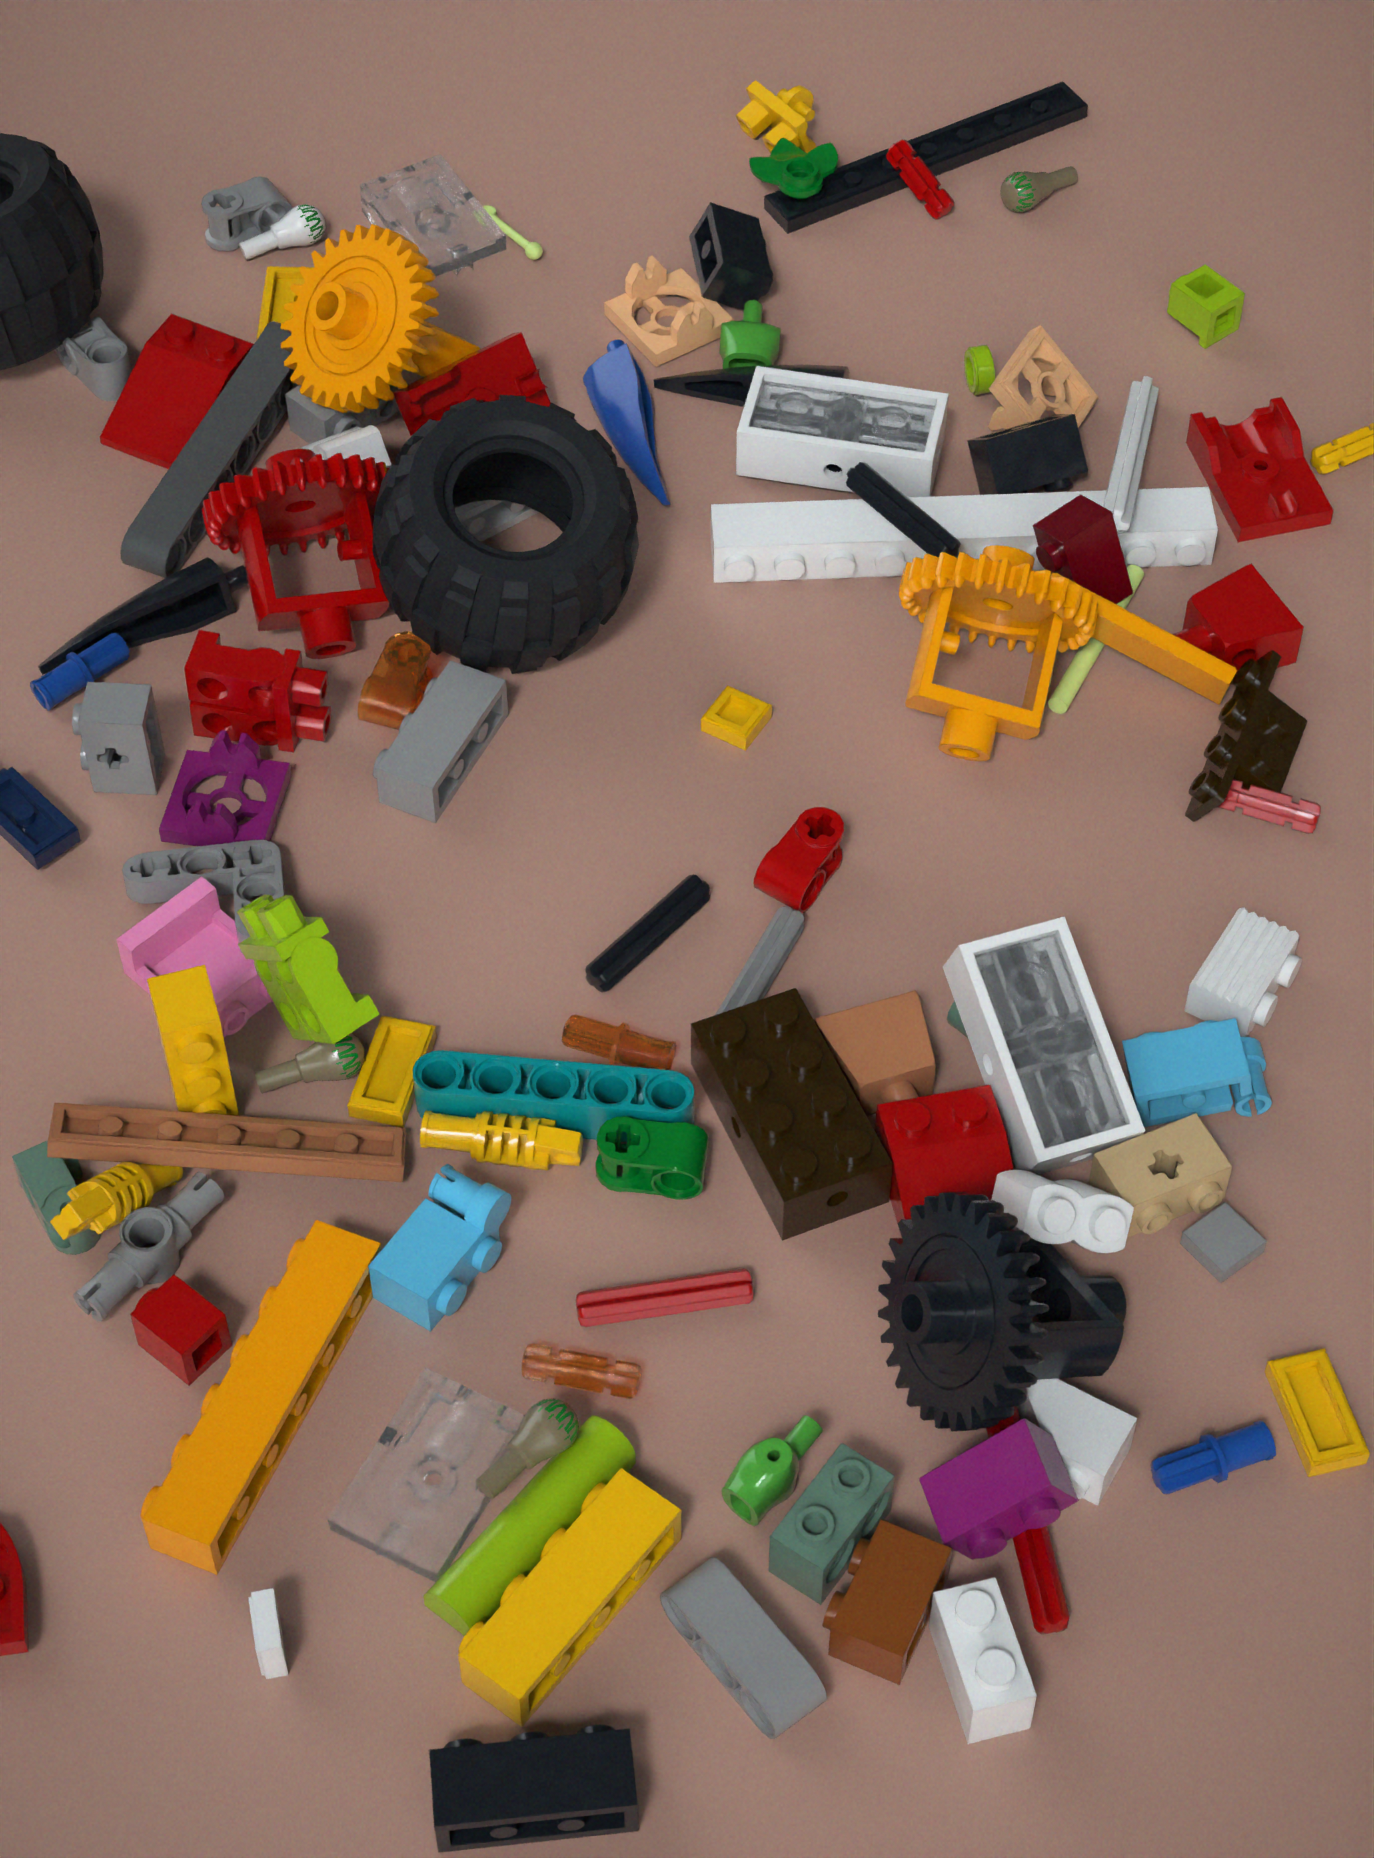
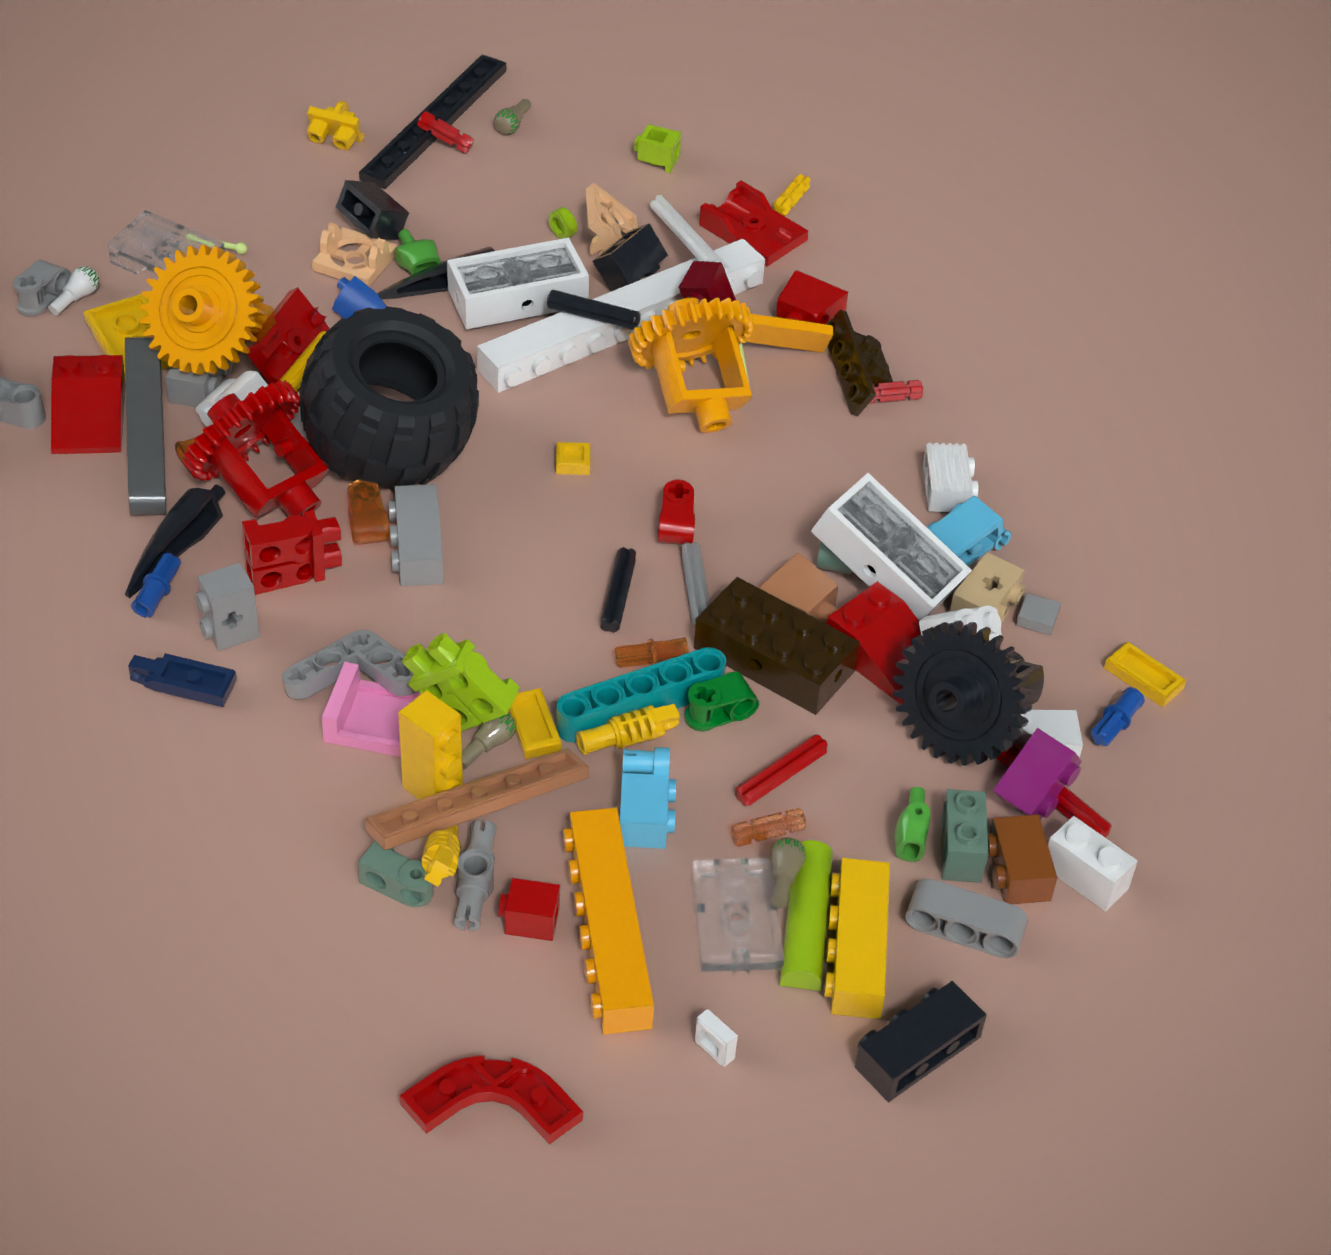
camera: 35 degrees left, 5 degrees down
(237, 762) = (301, 597): magenta piece -> none
(794, 170) = (374, 151): green plate -> none

